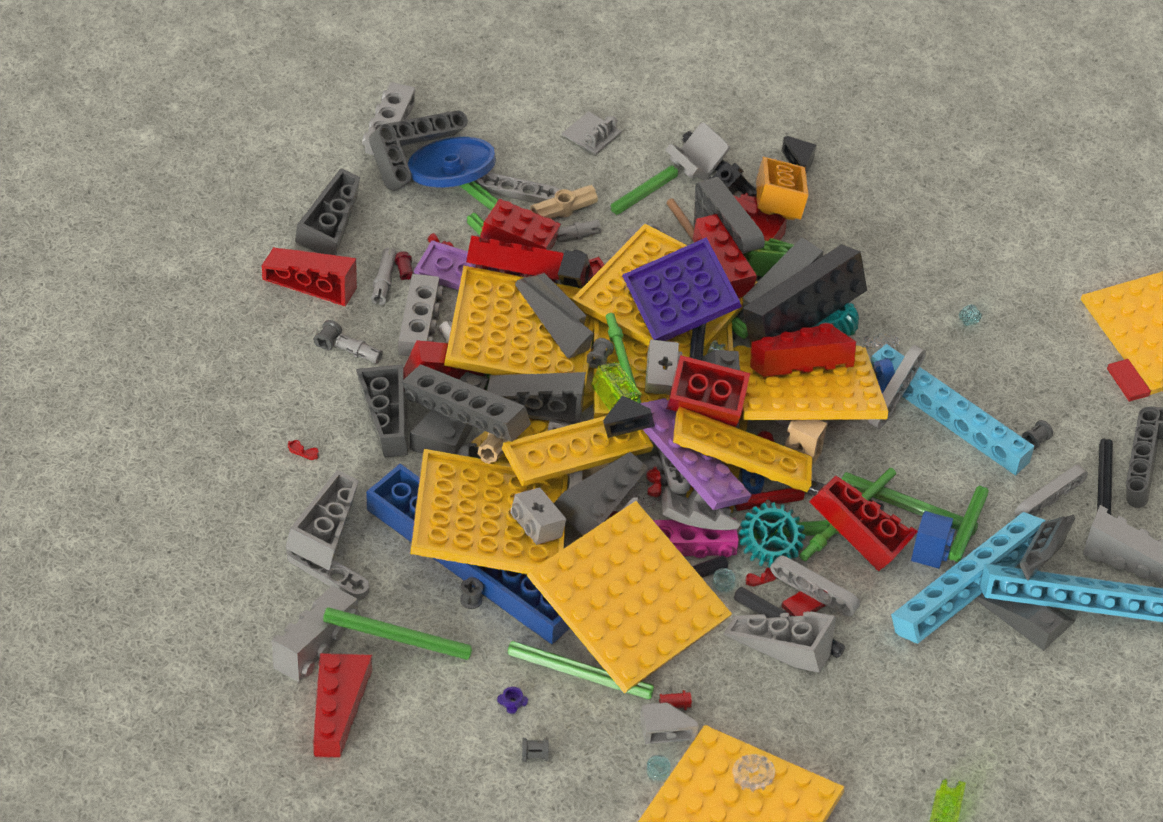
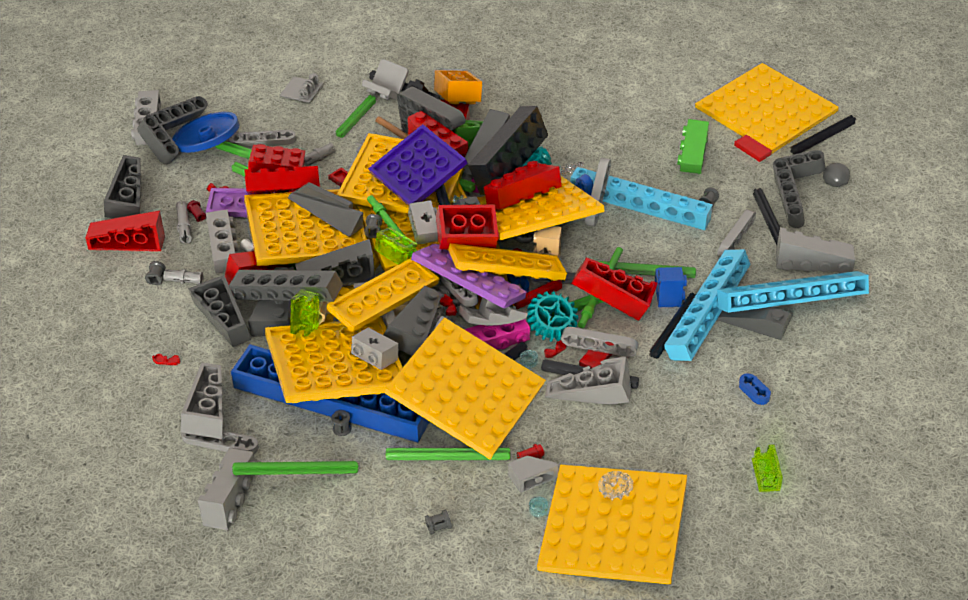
camera: 15 degrees left, 5 degrees down
(339, 693) = (265, 529): red wedge -> none
(473, 445) = (304, 312): none -> clear neon green hinge
(512, 693) = (404, 486): dark purple plate -> none
(566, 202) = (303, 136): tan piece -> none
(575, 269) = (329, 175): black brick -> none
(627, 417) = (415, 260): black slope -> none
(798, 152) = (456, 62): black slope -> none
(883, 616) = (658, 346): none -> black axle
(968, 523) = (689, 263): bright green axle -> none
(970, 315) = (625, 135): clear light blue bush -> none
(974, 705) = (753, 390): none -> blue beam
(1045, 544) = (754, 263): dark grey wedge -> none
(1049, 357) = (693, 146): none -> bright green wedge

